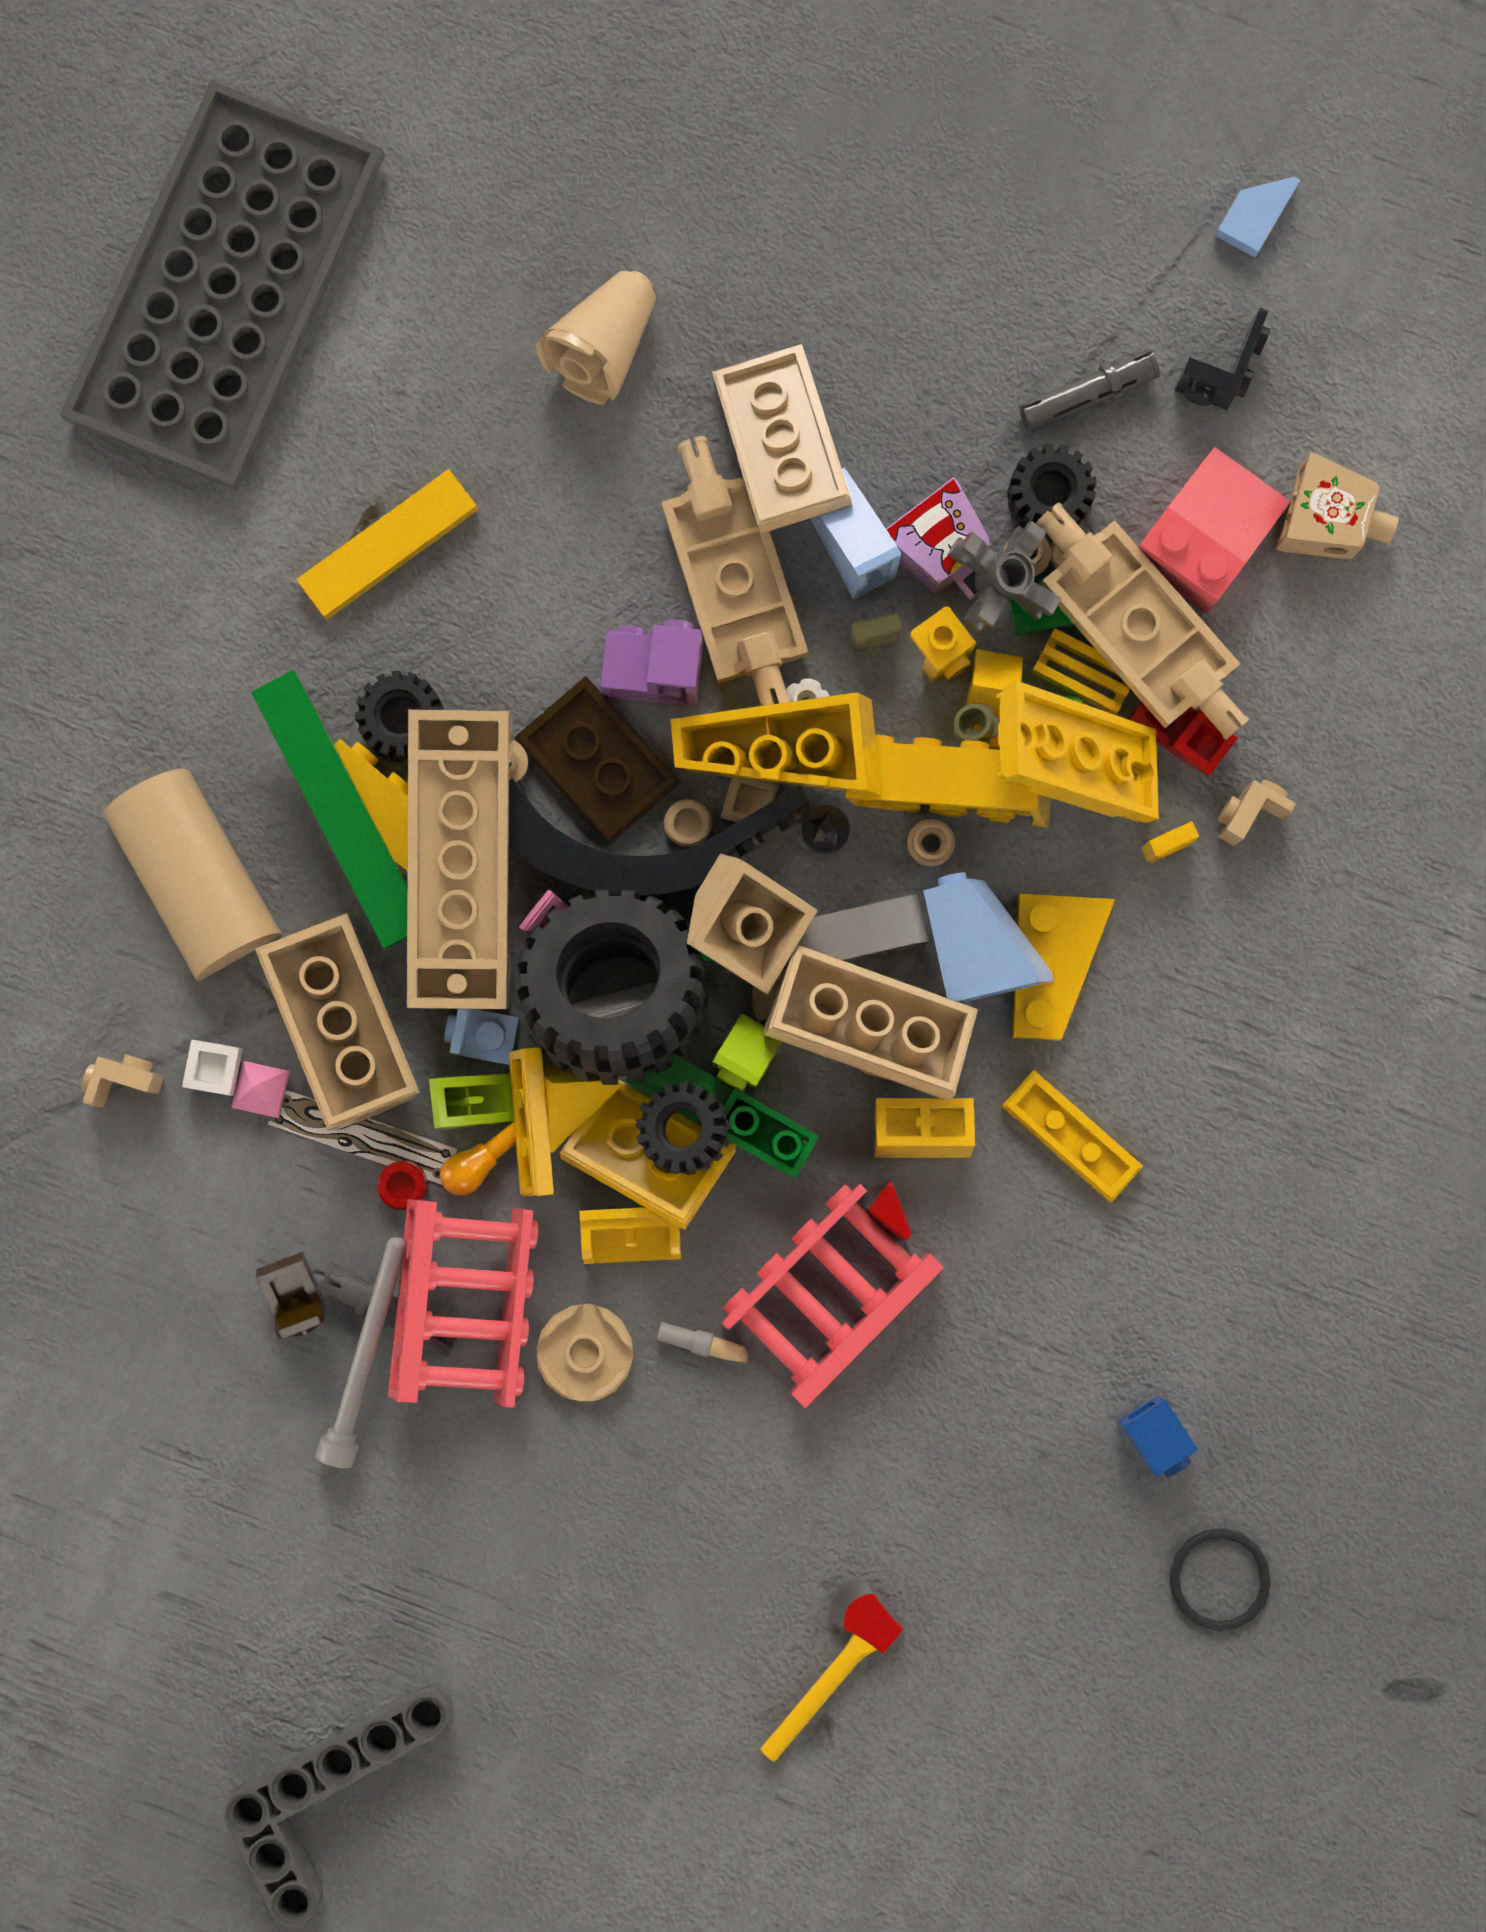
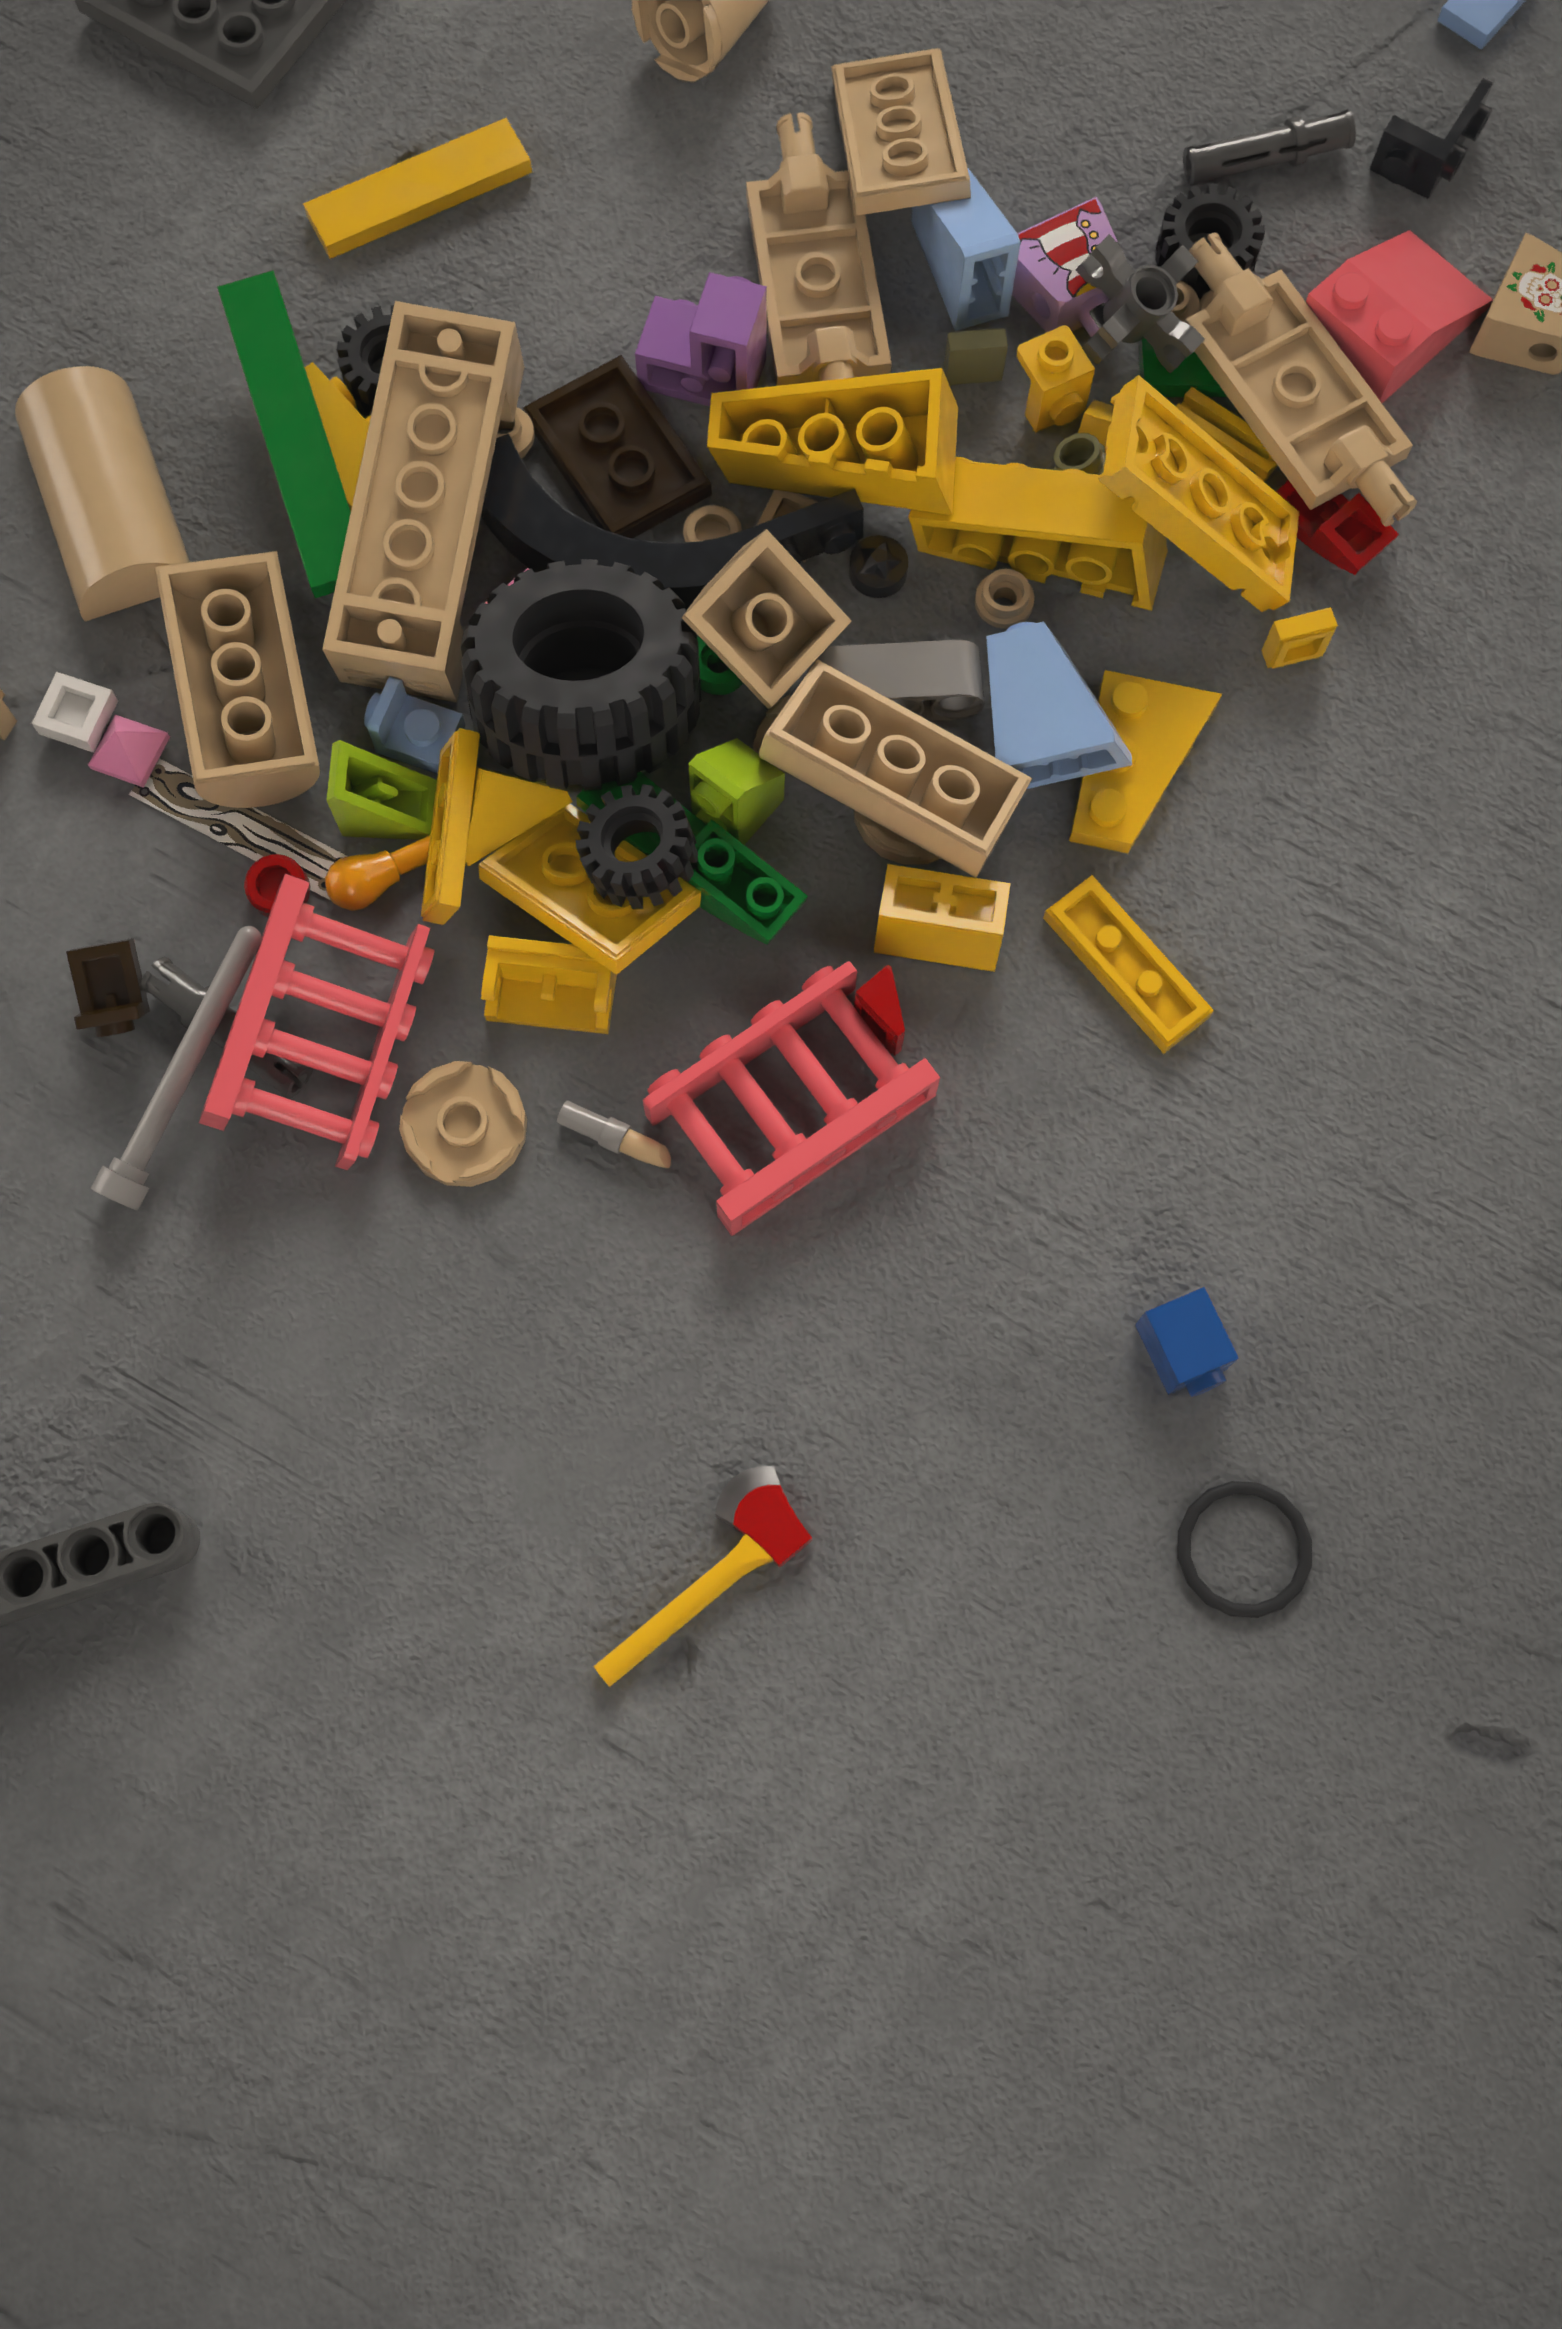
camera: 10 degrees right, 10 degrees down
(1241, 812) = (1416, 604): tan bracket -> none

